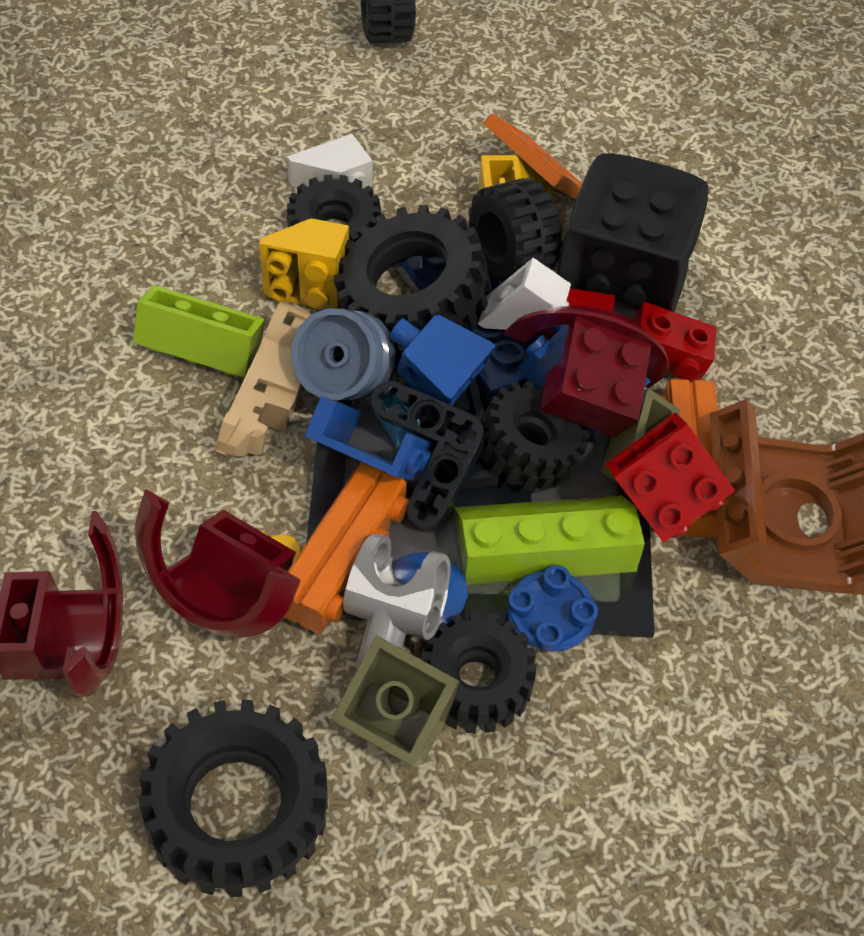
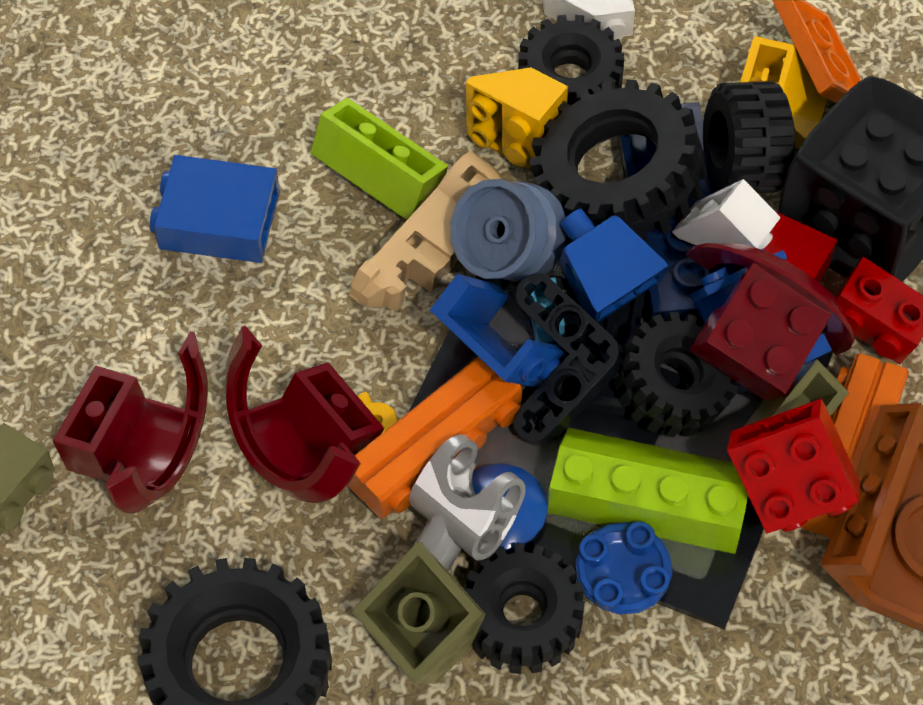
camera: 25 degrees right, 5 degrees up
(63, 410) = (216, 208): none -> blue brick

